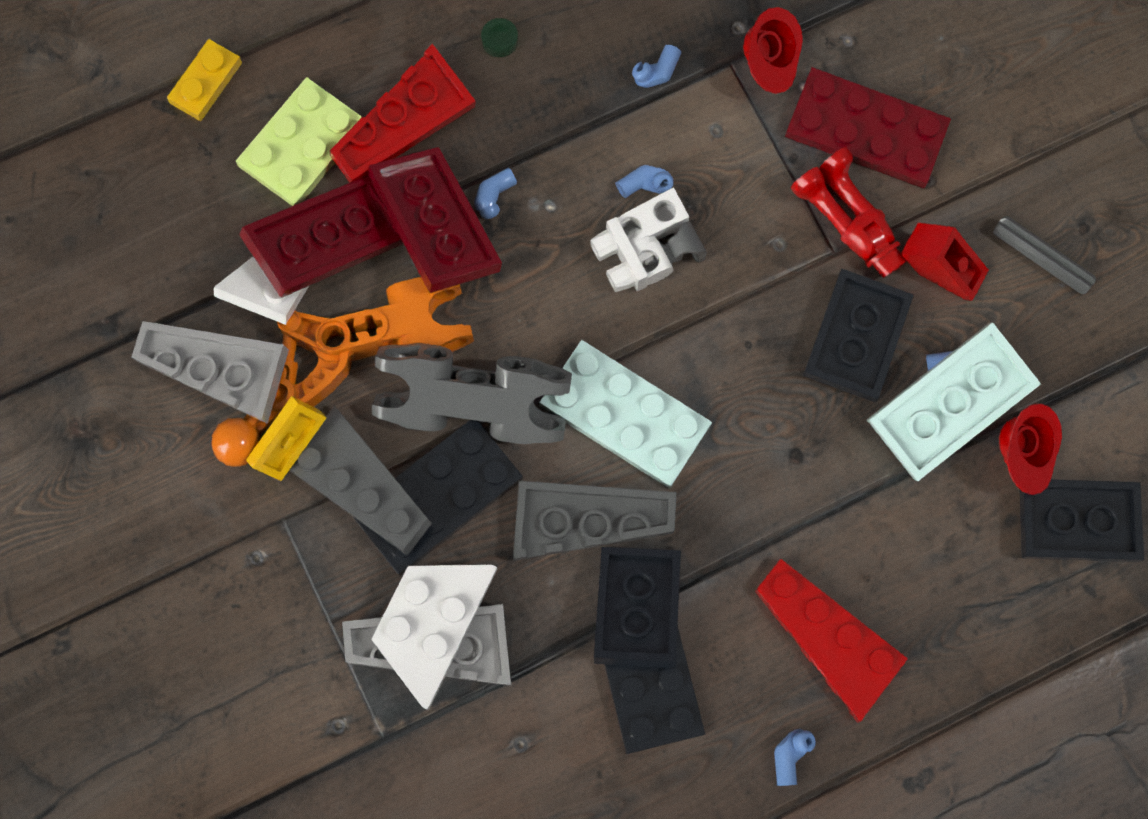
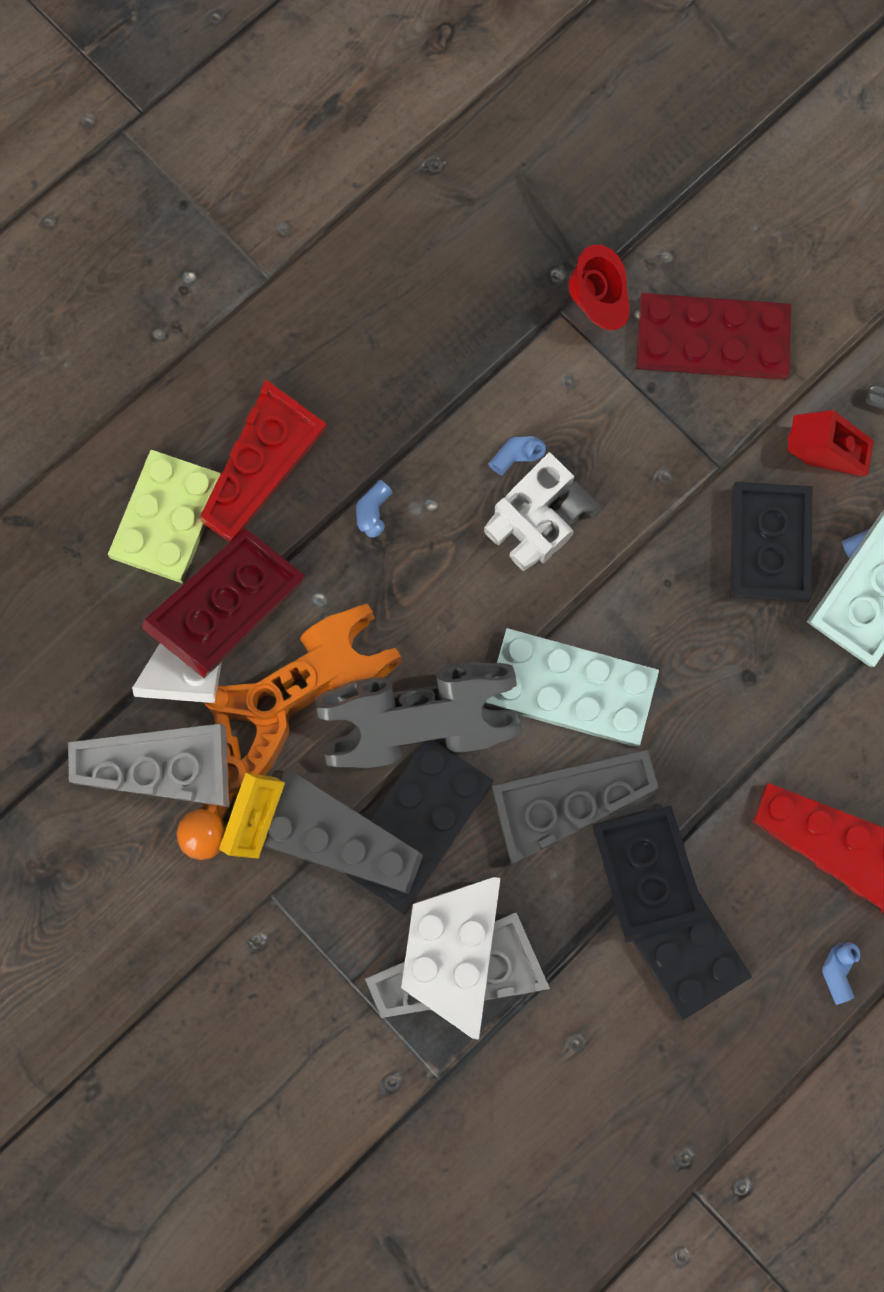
camera: 15 degrees left, 0 degrees up
(204, 80) = (49, 482): yellow plate -> none
(434, 219) = (326, 553): dark red plate -> none
(499, 37) = (328, 353): clear green tile -> none
(657, 73) = (495, 342): medium blue arm -> none
(865, 235) = (748, 439): red piece -> none

